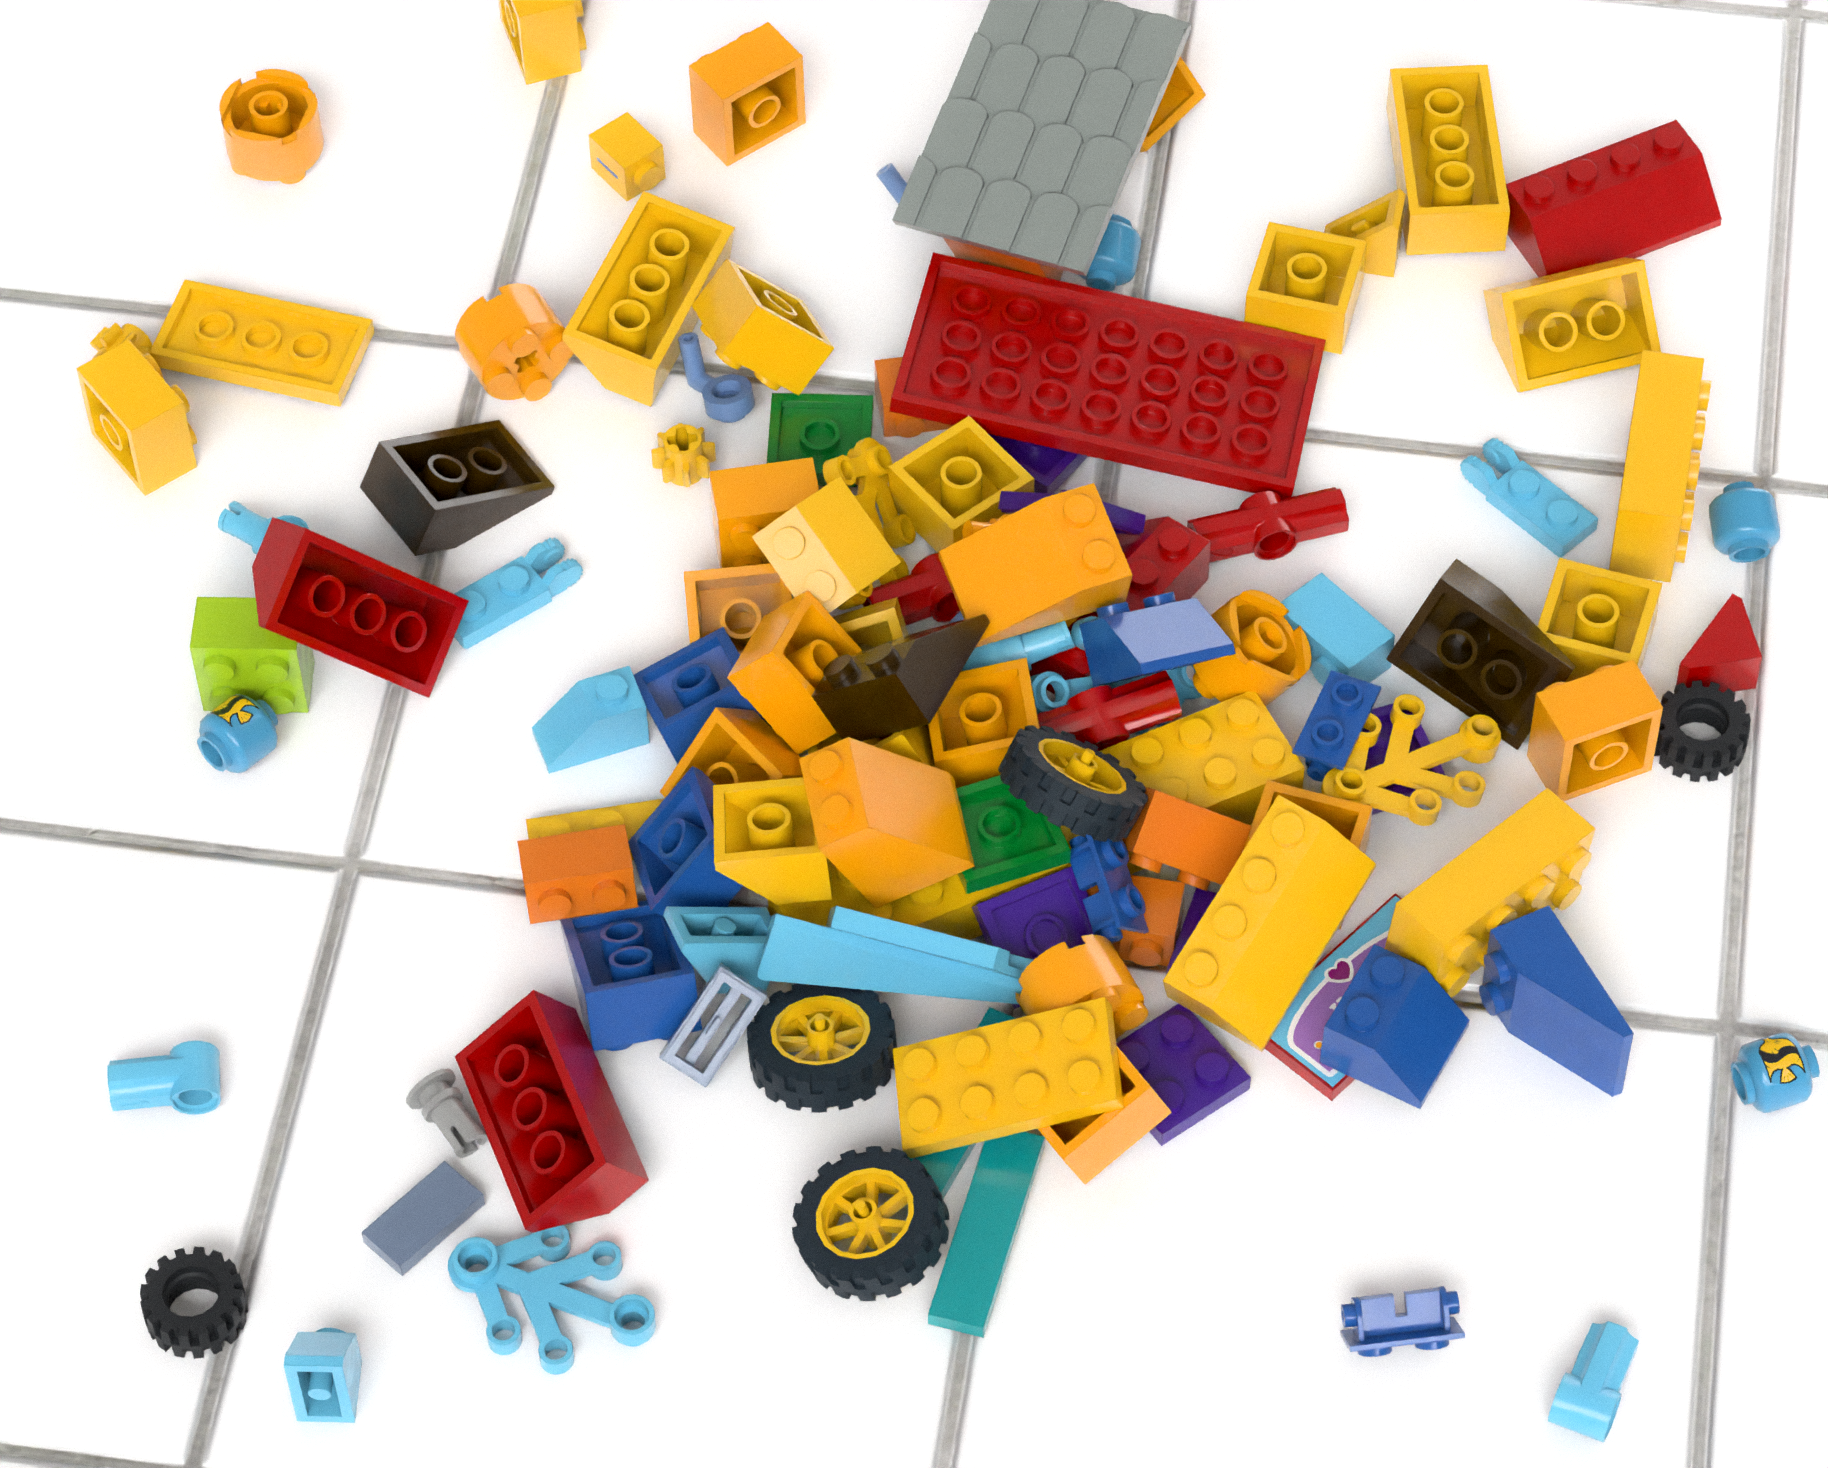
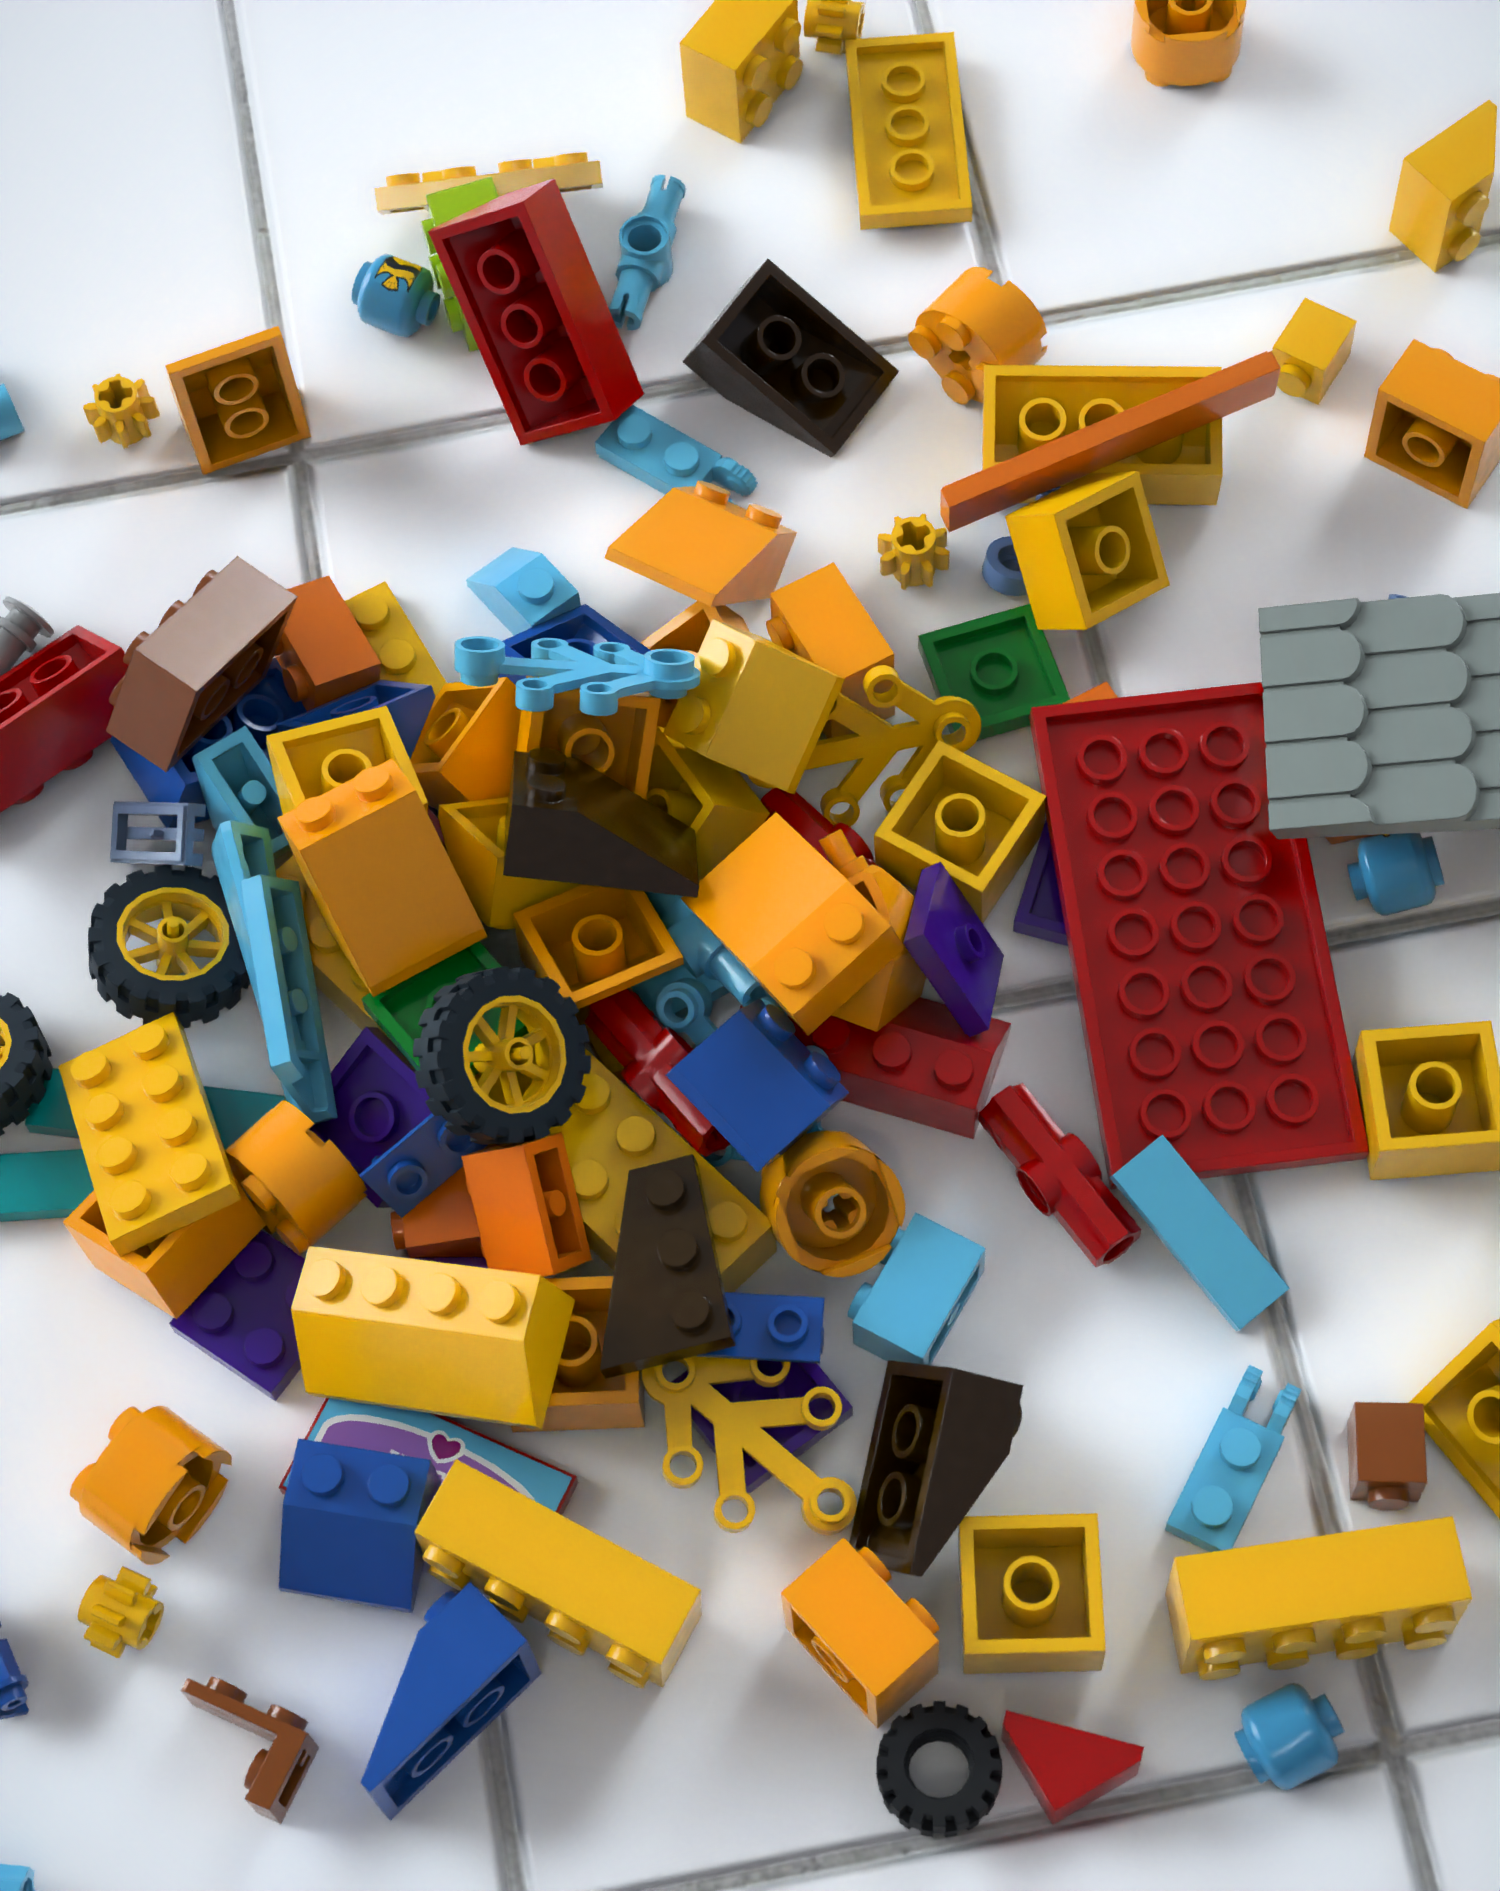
camera: 75 degrees right, 10 degrees up
(167, 643) = (409, 194): none -> yellow hinge
(245, 970) = (121, 410): none -> yellow gear
(296, 862) = (238, 400): none -> light orange slope
(596, 917) = (198, 662): none -> dark orange brick
(631, 565) = (706, 546): none -> light orange slope
(682, 275) = (1109, 440): none -> orange tile
(748, 628) = (565, 668): none -> medium azure plant
(1284, 750) = (666, 1274): none -> dark brown wing
(1310, 1155) = (152, 1482): none -> light orange brick
(1351, 453) = (1199, 1233): none -> medium azure tile
(1403, 1215) = (120, 1612): none -> yellow gear
(1557, 1128) = (275, 1773): none -> dark orange bracket
(1558, 405) = (1387, 1454): none -> dark orange brick

